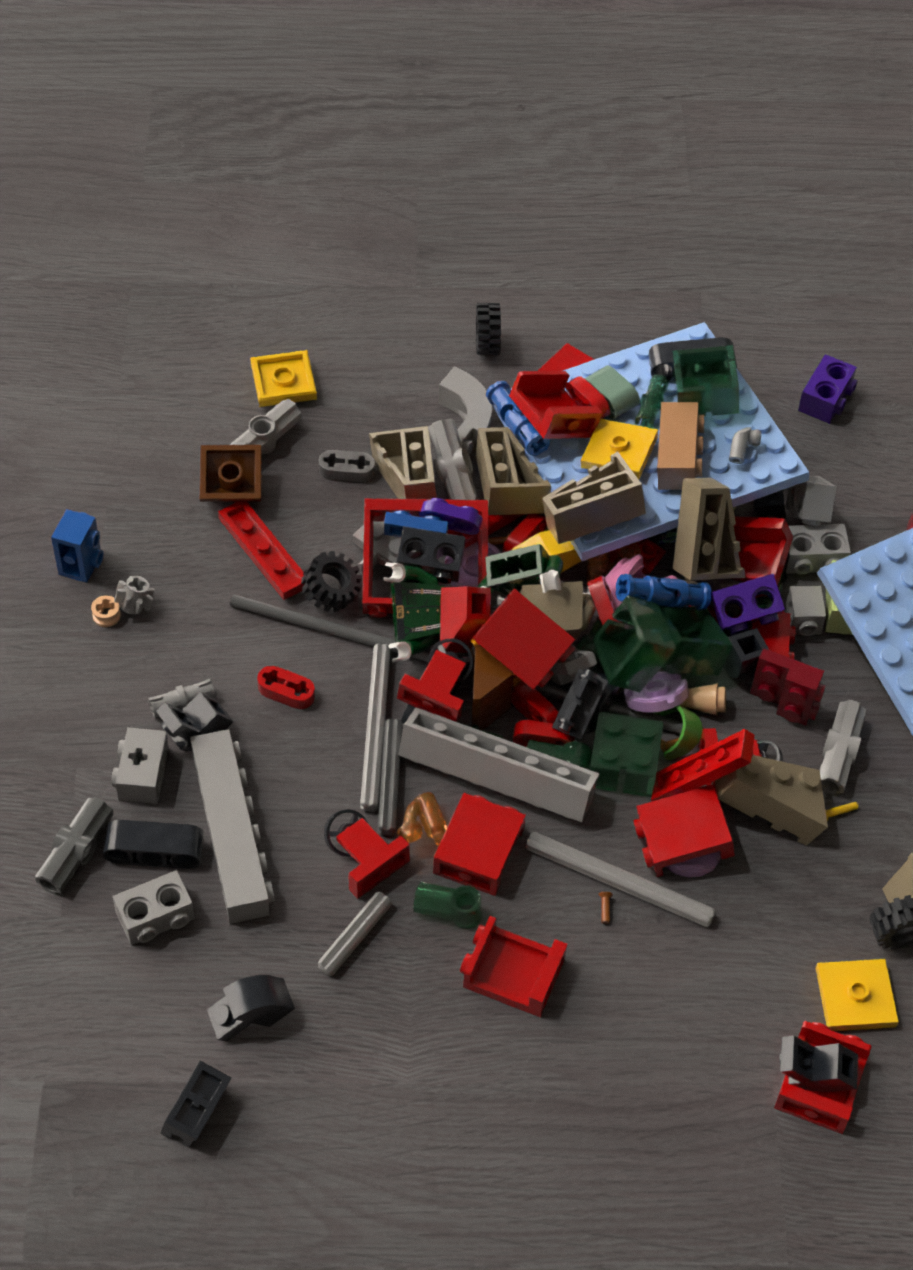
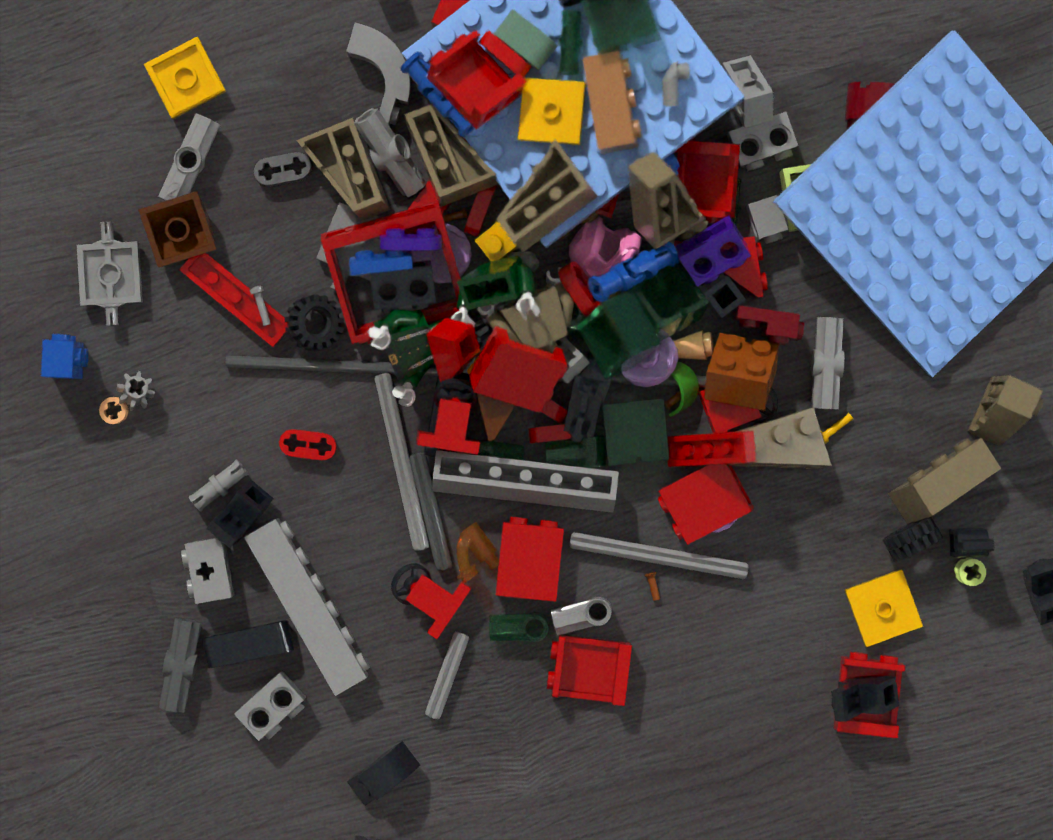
camera: 15 degrees left, 35 degrees up
(150, 501) = (109, 273): none -> light grey plate
(285, 542) = (260, 303): none -> light grey piece
(518, 909) = (578, 616): none -> light grey piece
(760, 714) = (741, 371): none -> dark orange piece

